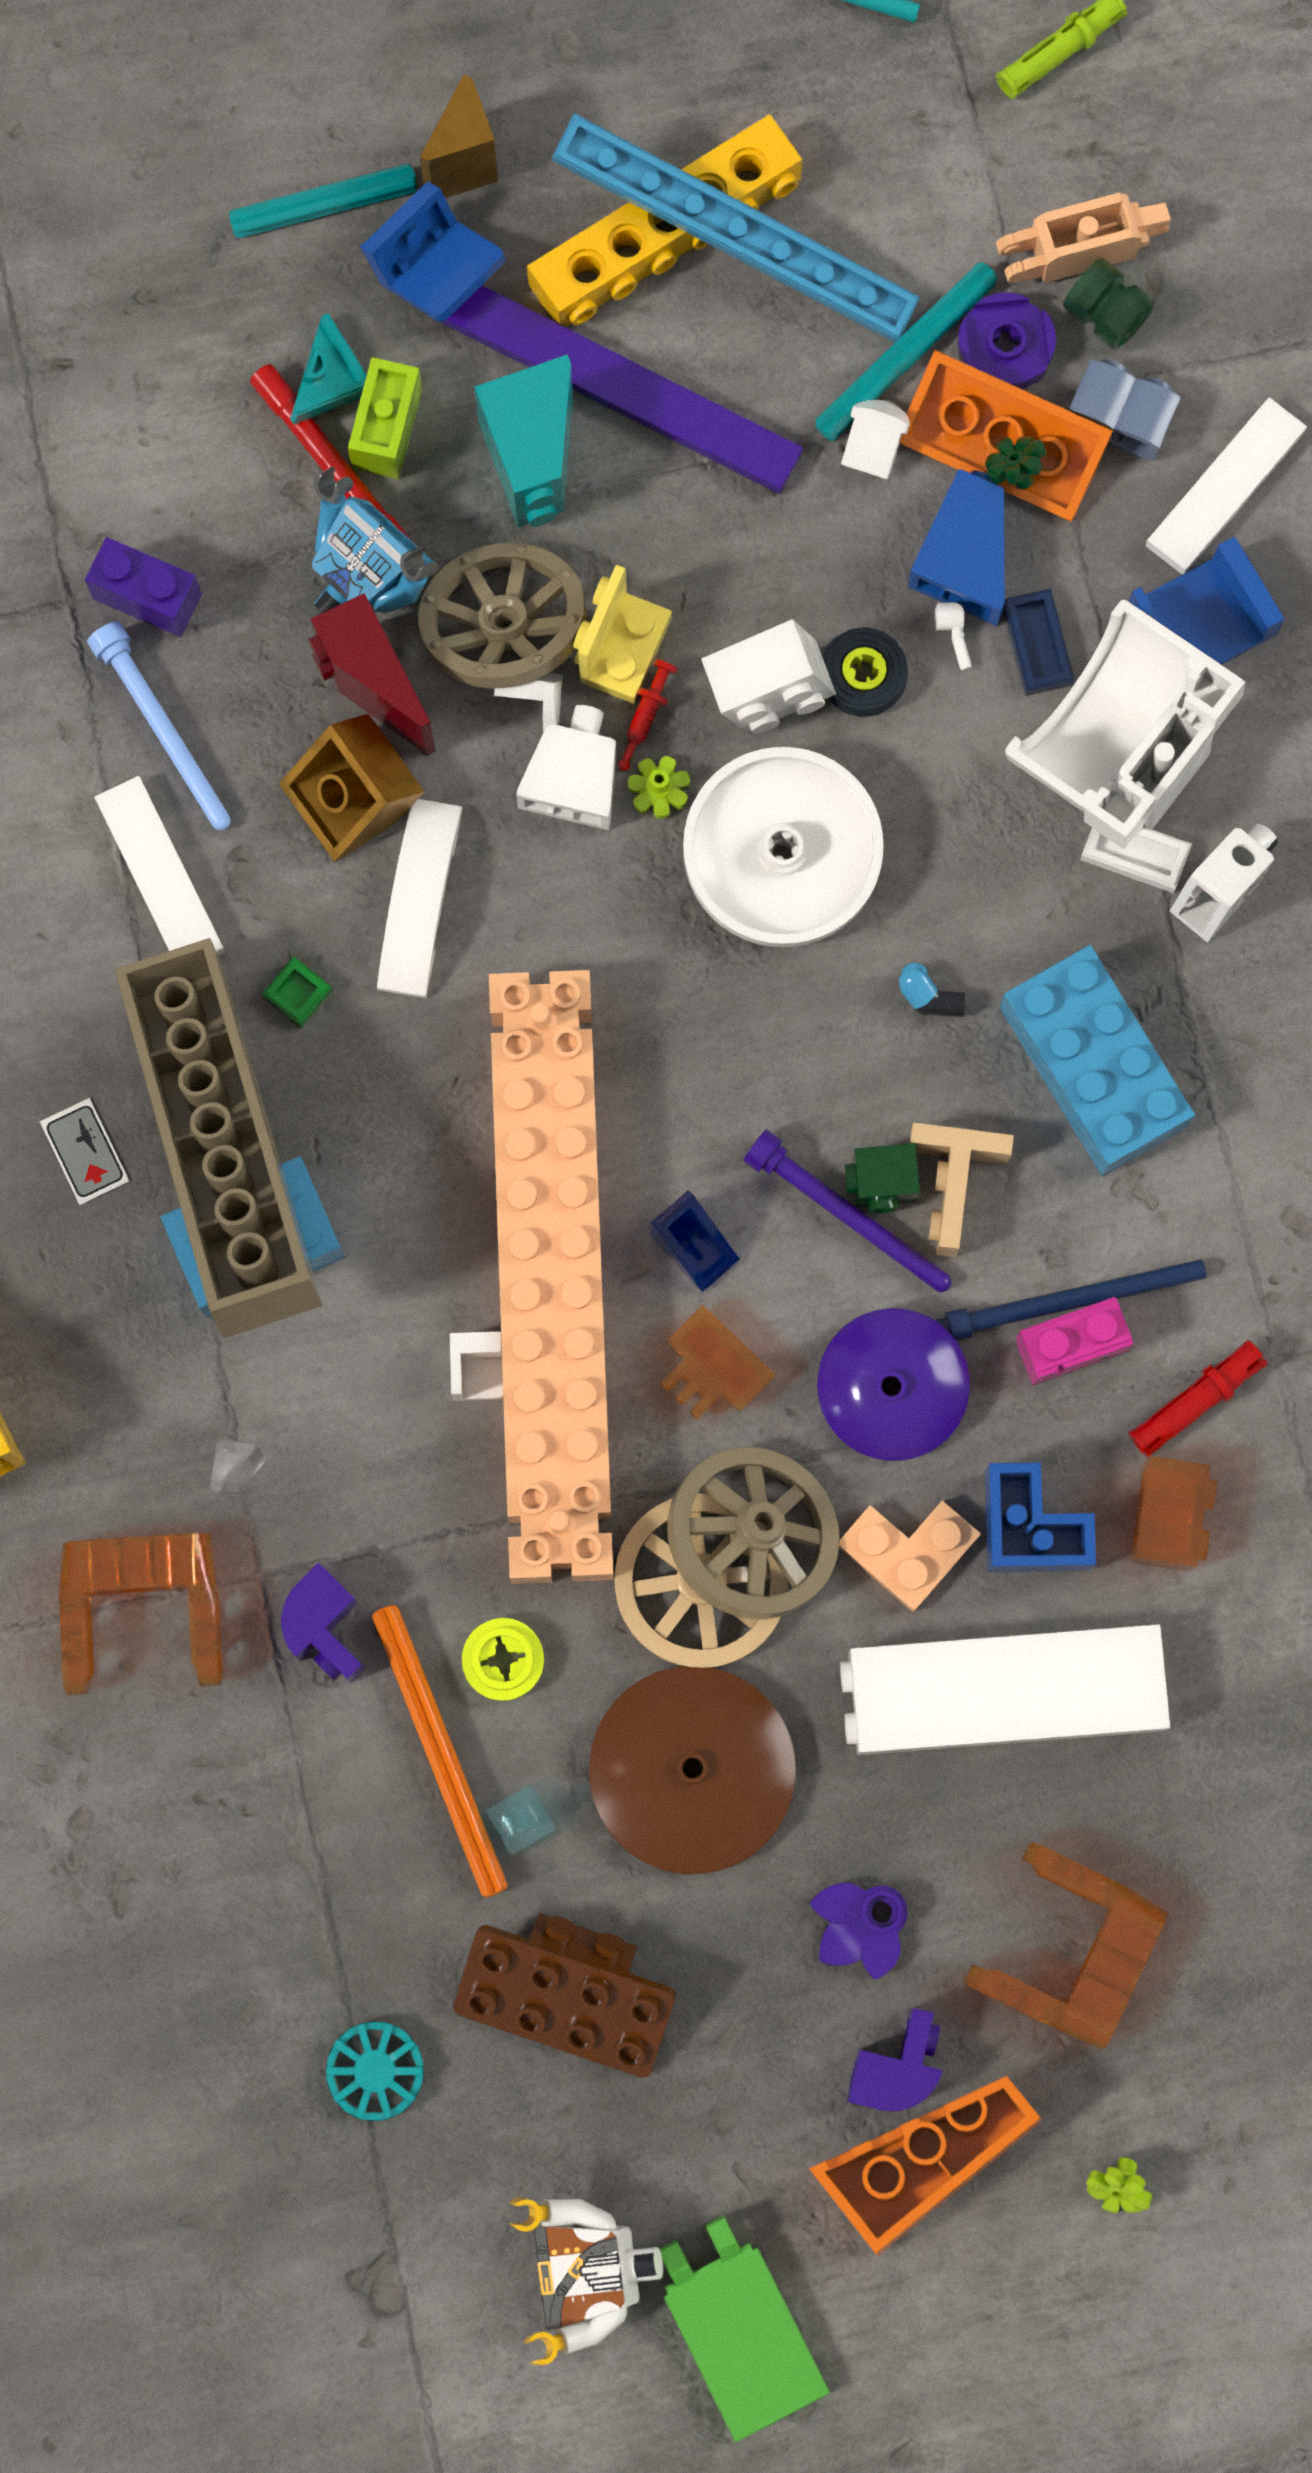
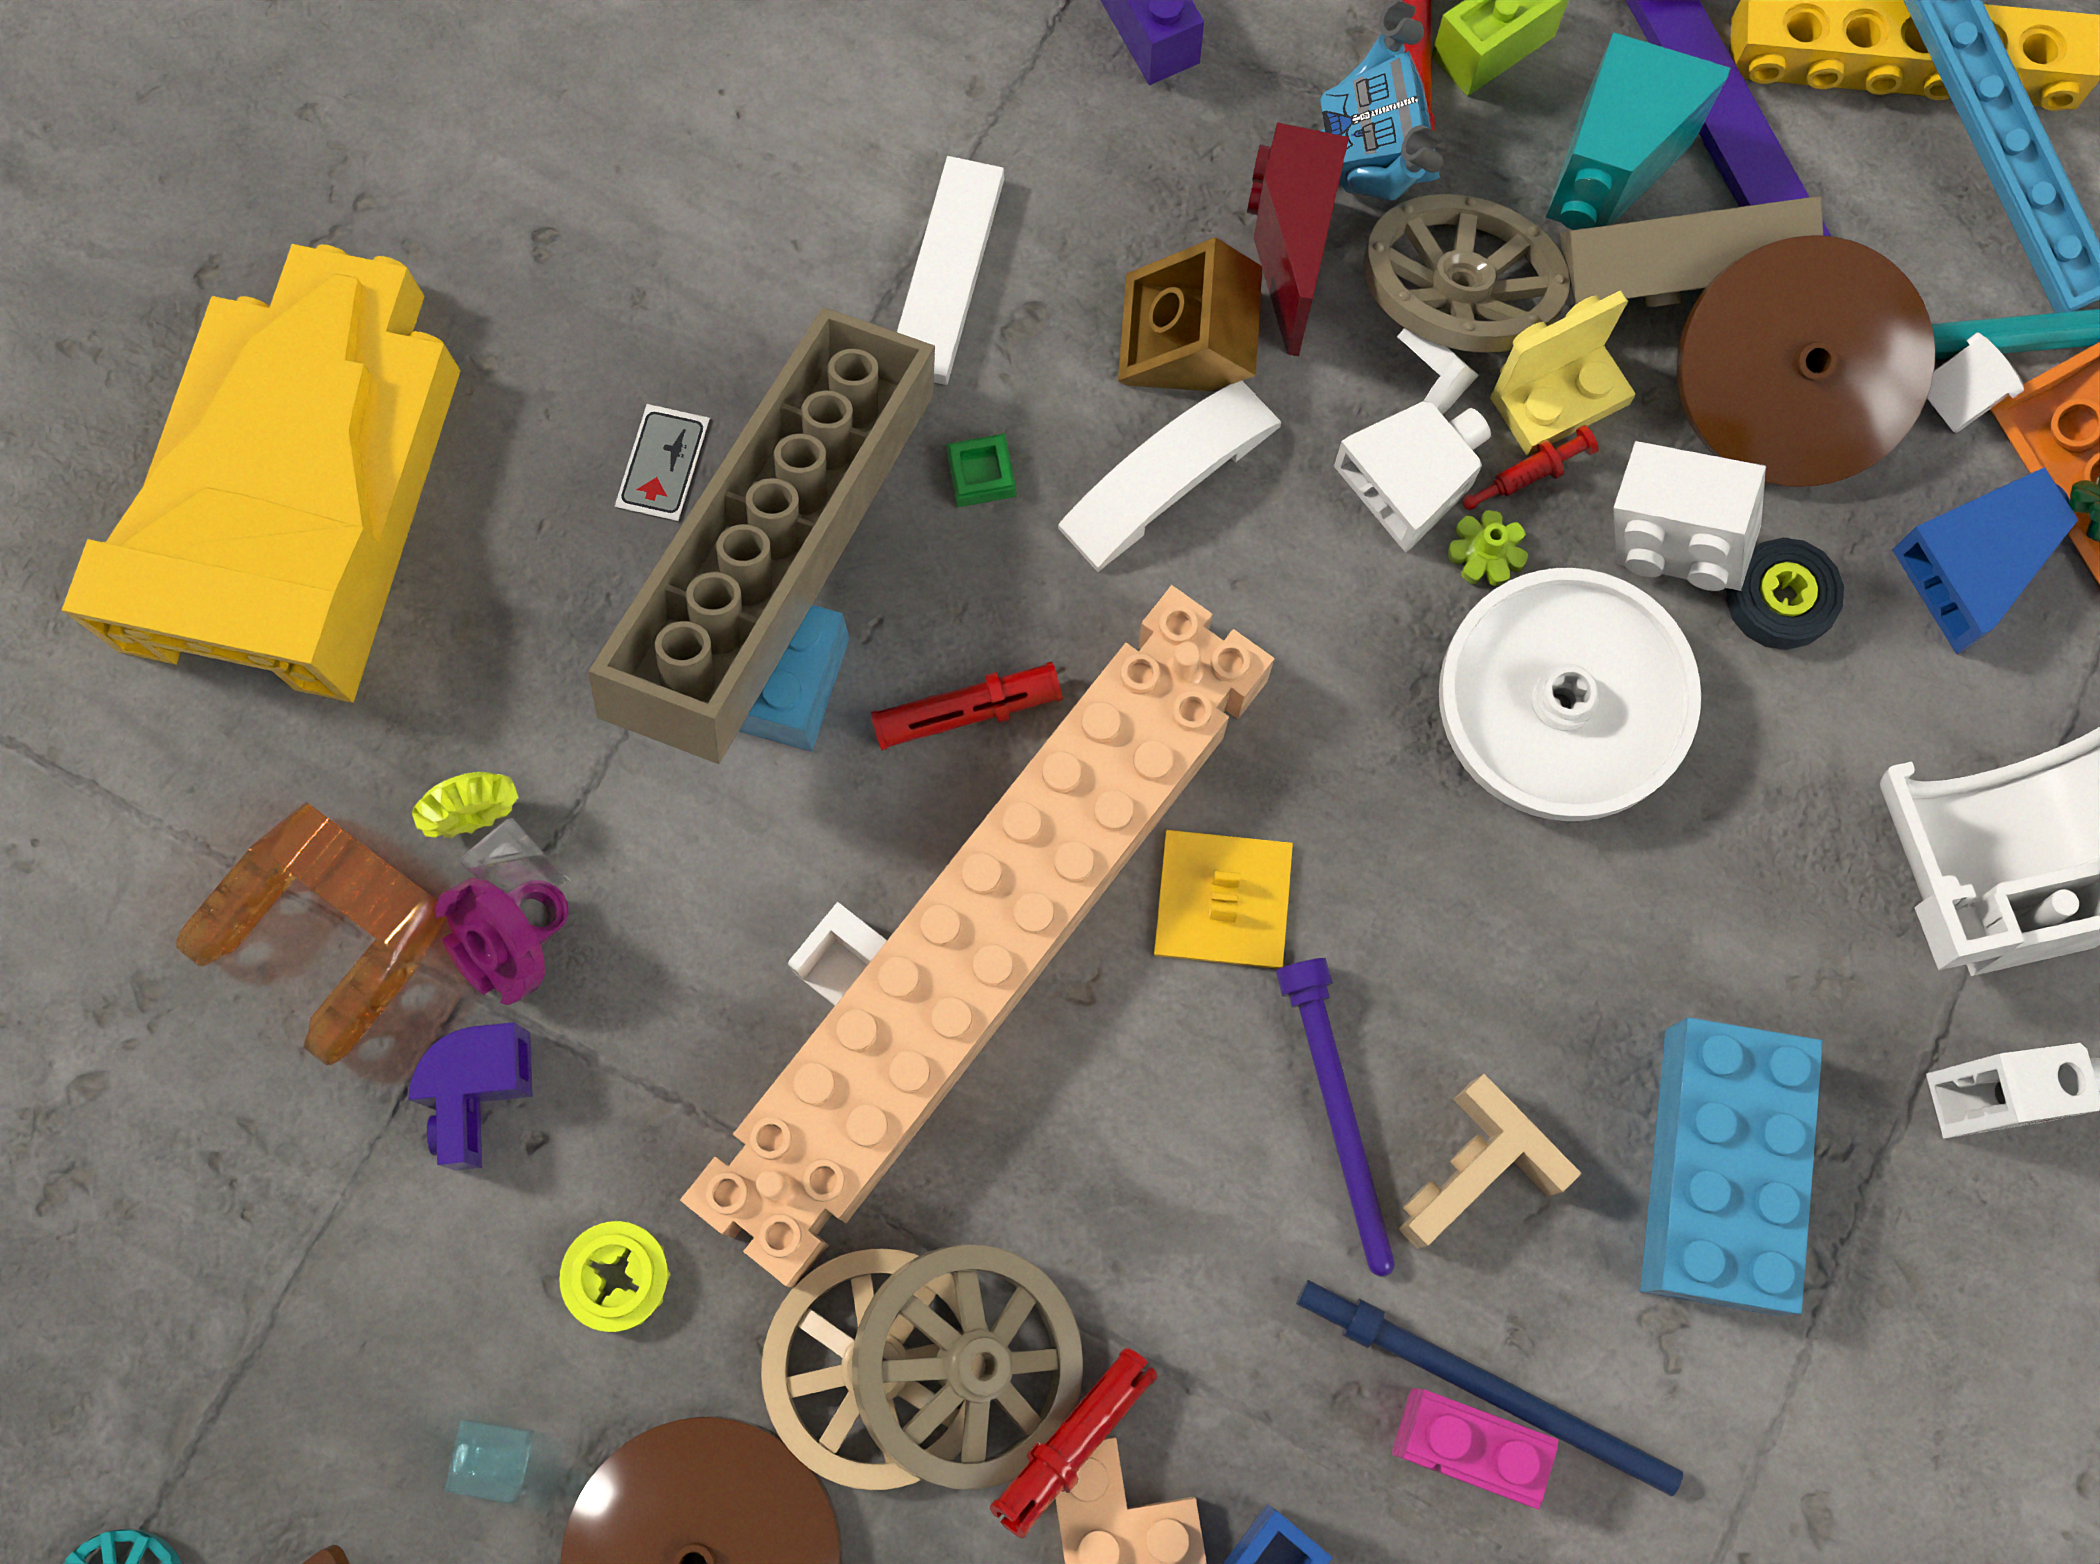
camera: 40 degrees right, 5 degrees down
(112, 646) = (1078, 40): light blue piece -> none
(166, 1463) = (464, 804): none -> neon yellow gear
(260, 1524) = (493, 937): none -> magenta tile
(420, 1150) = (967, 705): none -> red pin
(439, 1751) = (471, 1322): orange axle -> none
(636, 491) = (1677, 252): none -> dark tan brick
(675, 1142) = (1223, 899): none -> yellow piece
(693, 1241) = (1158, 1010): clear blue slope -> none
(714, 1365) = (1076, 1154): clear orange hinge -> none
(718, 504) = (1748, 349): none -> reddish brown dish
(848, 1541) = (1055, 1463): none -> red pin
(883, 1177) = (1407, 1105): dark green brick -> none
(925, 996) = (1597, 957): arm -> none
(931, 1378) = (1293, 1323): dark purple dish -> none
(951, 617) = (1917, 608): white hand -> none
(1038, 642) = (1990, 700): dark blue tile -> none
(1147, 858) = (1944, 1001): white tile -> none

